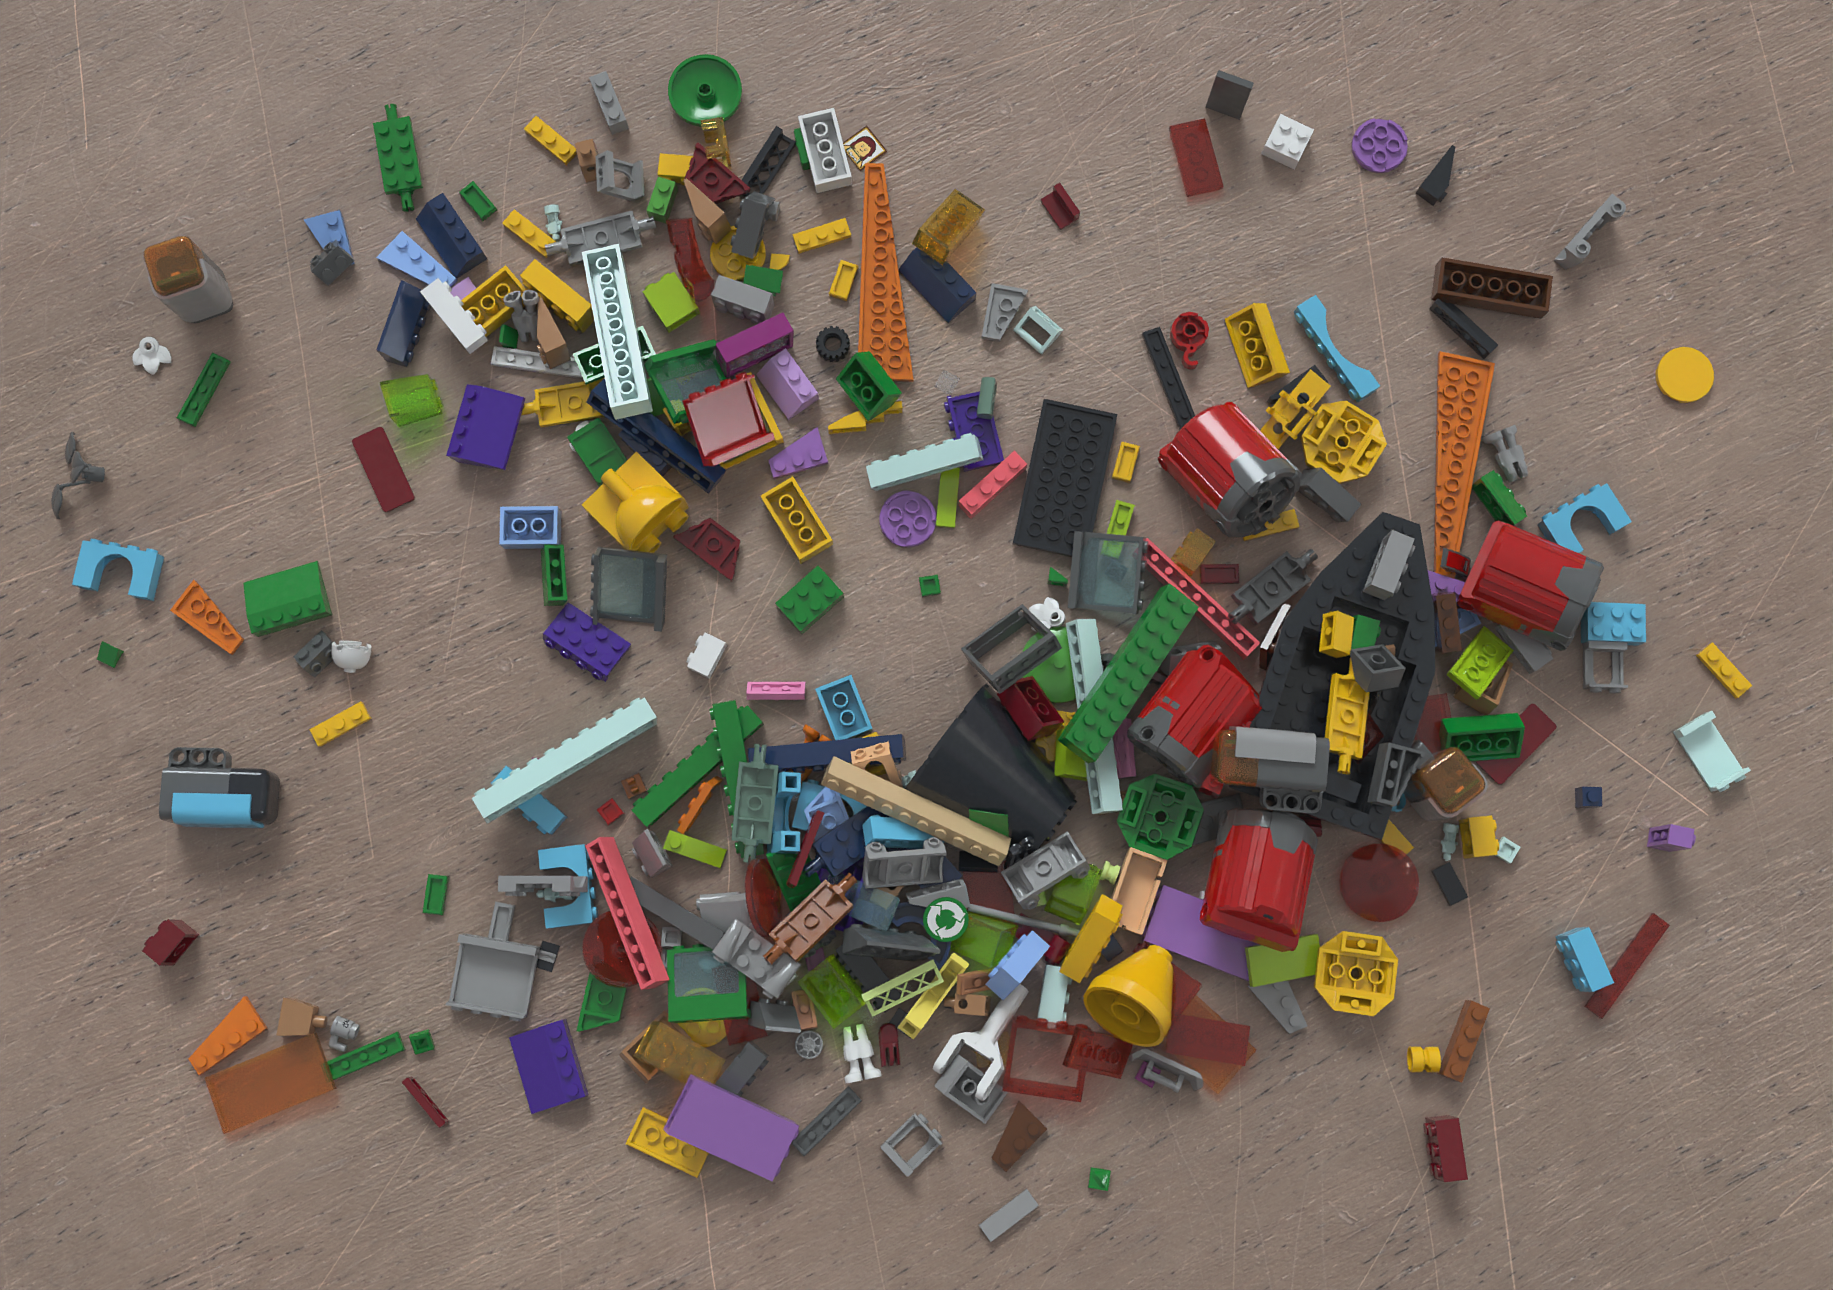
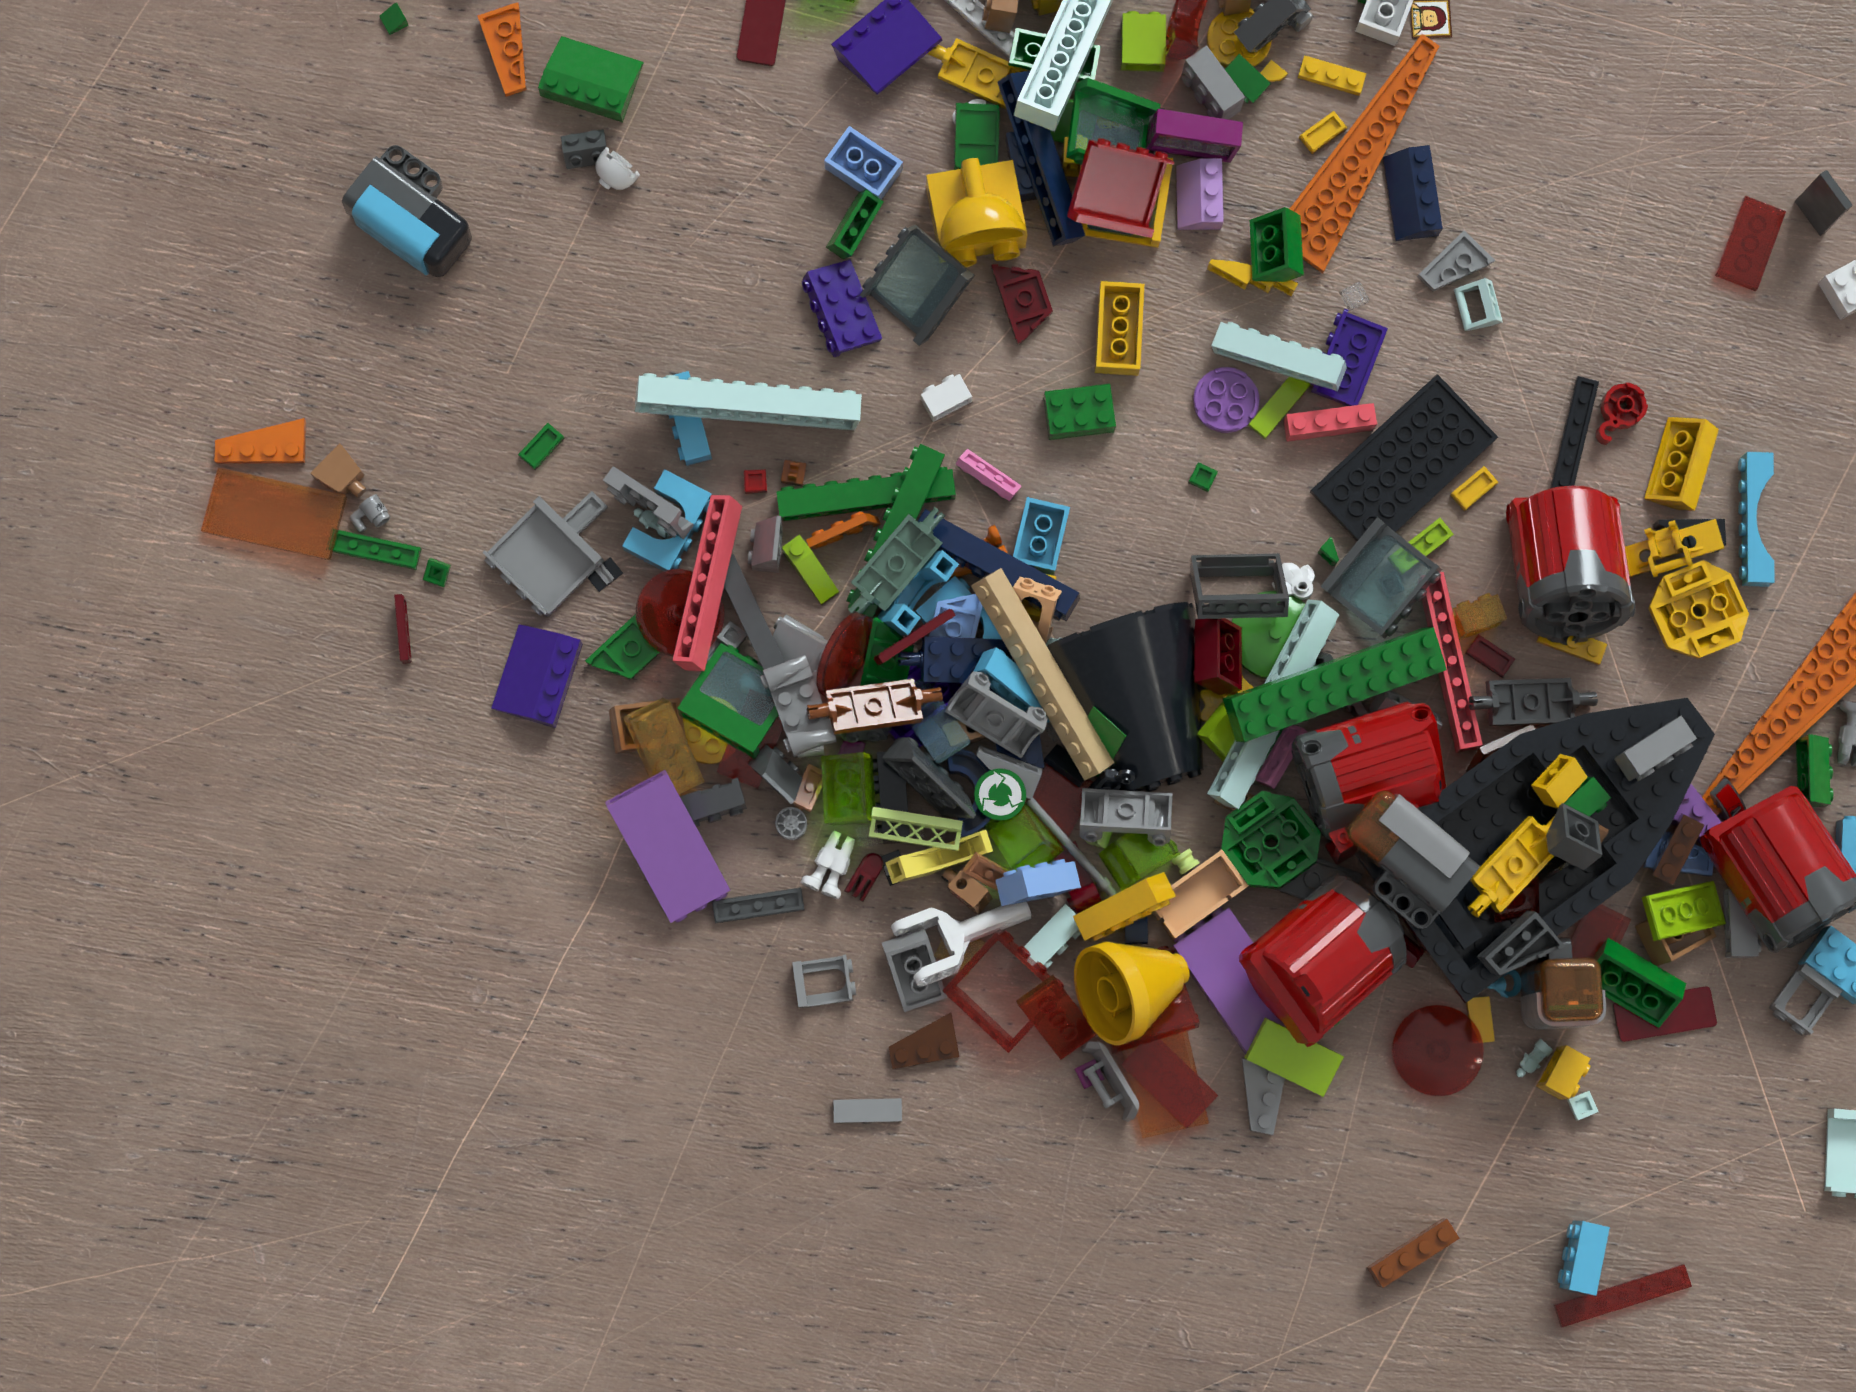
camera: 30 degrees right, 0 degrees up
(169, 942) = (271, 321): dark red brick -> none
(340, 724) = (561, 228): yellow plate -> none
(654, 1141) = (595, 823): yellow tile -> none
(799, 456) = (1164, 271): medium lavender wing -> none
(832, 333) = (1269, 198): black tyre -> none
(948, 226) = (1459, 147): clear yellow brick -> none
(987, 398) = (1382, 335): sand green brick -> none
(1060, 207) = (1583, 202): dark red panel -> none
(1099, 1178) = (975, 1137): green tile -> none
(1328, 494) = (1648, 651): dark grey wedge -> none
(1376, 970) = (1378, 1111): yellow piece -> none
(1423, 1059) = (1362, 1242): yellow wheel -> none
(1445, 1148) = (1324, 1337): dark red brick -> none
(1449, 884) = (1505, 1099): black tile -> none
(1588, 797) = (1699, 1111): dark blue brick -> none
(1671, 838) = (1751, 1201): medium lavender brick -> none

